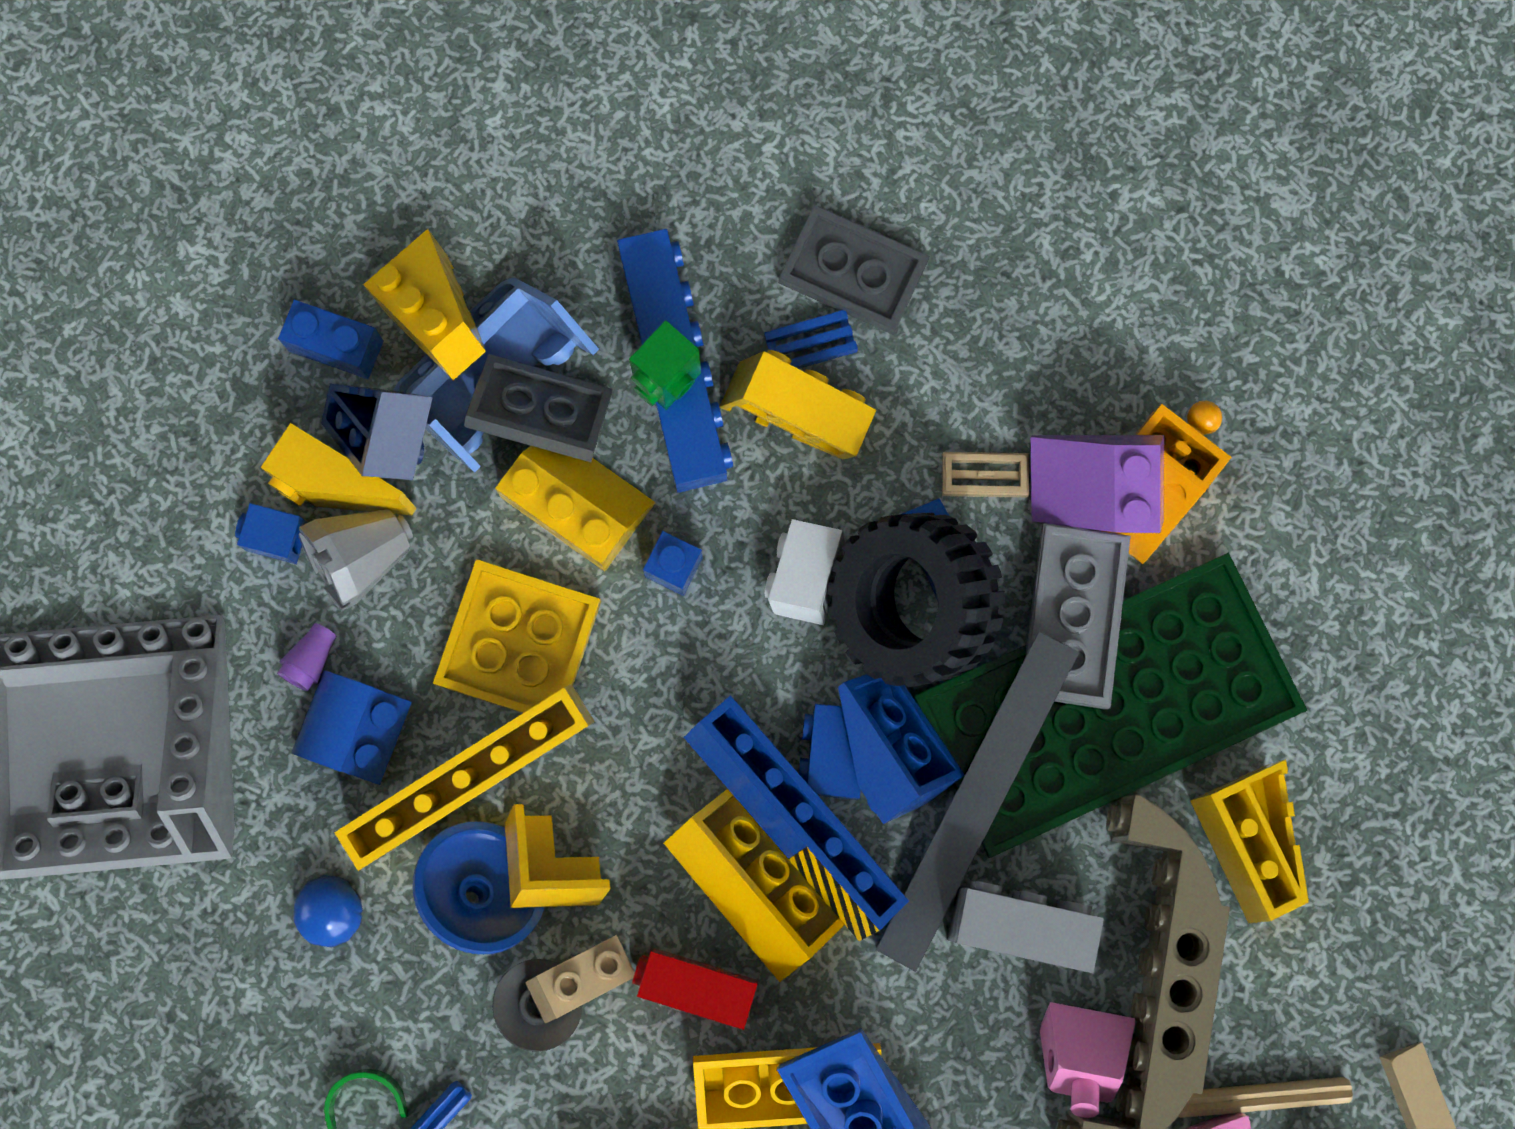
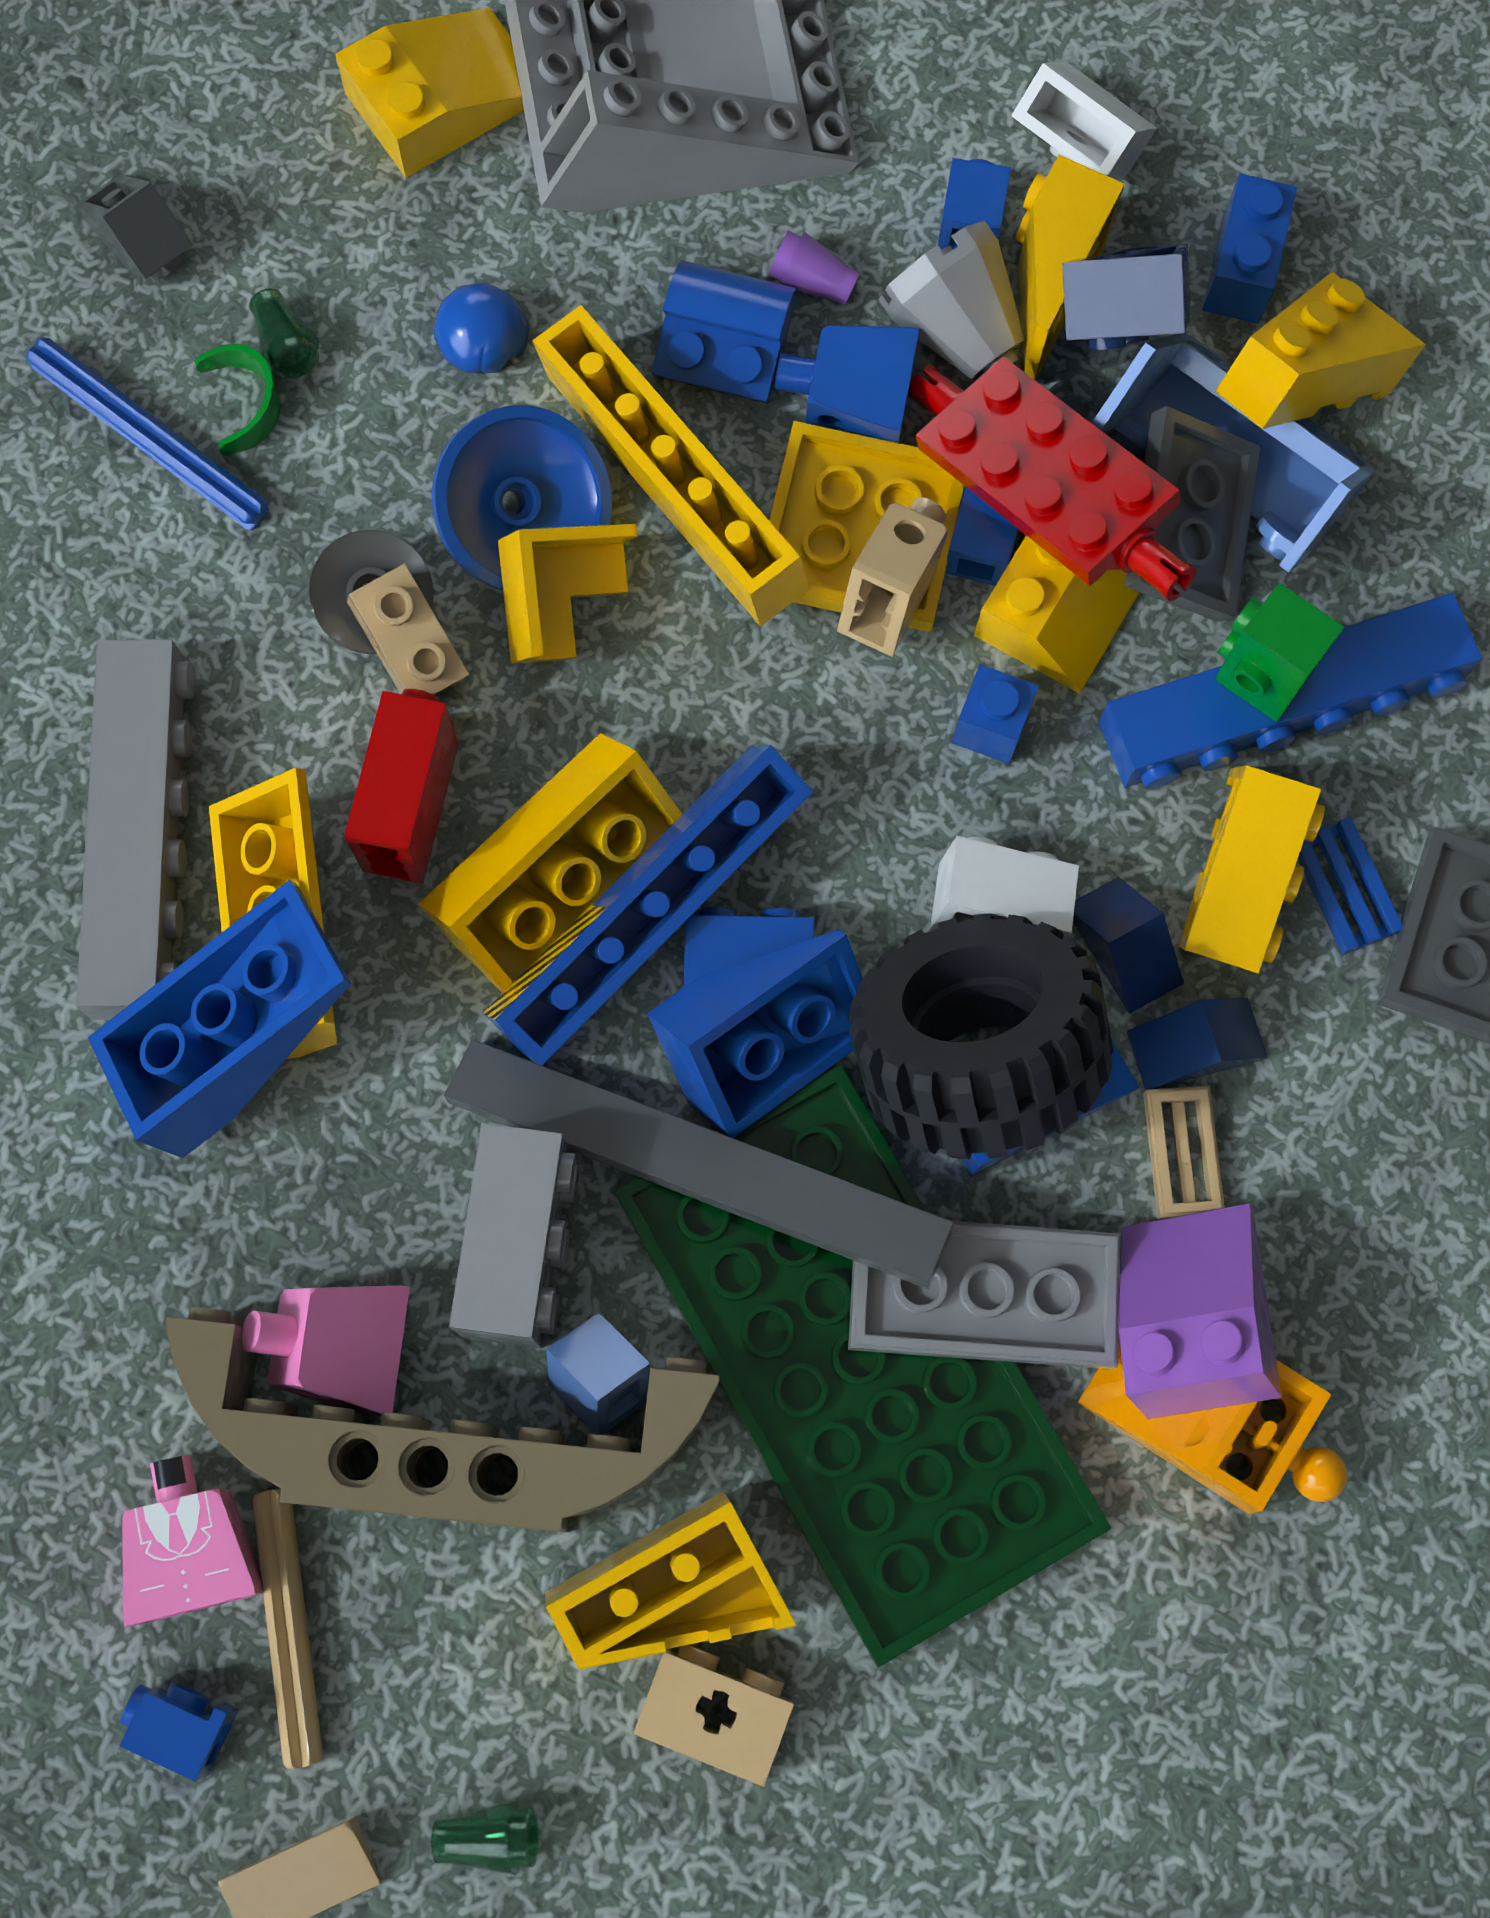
camera: 85 degrees right, 5 degrees down
(113, 933) = (432, 84): none -> yellow slope
(214, 445) = (1083, 120): none -> white brick
(318, 1064) = (283, 335): none -> clear green cone
(406, 634) = (855, 380): none -> blue torso
(506, 505) = (1052, 475): none -> red plate
(534, 554) = (980, 542): none -> blue brick
(570, 620) = (900, 559): none -> tan torso
(839, 493) = (1128, 943): none -> dark blue slope
(913, 455) = (1196, 1042): none -> dark blue slope
(1112, 877) = (598, 1374): none -> medium blue panel
(1350, 804) = (739, 1747): none -> tan brick
(1399, 969) = (488, 1839): none -> clear green cone

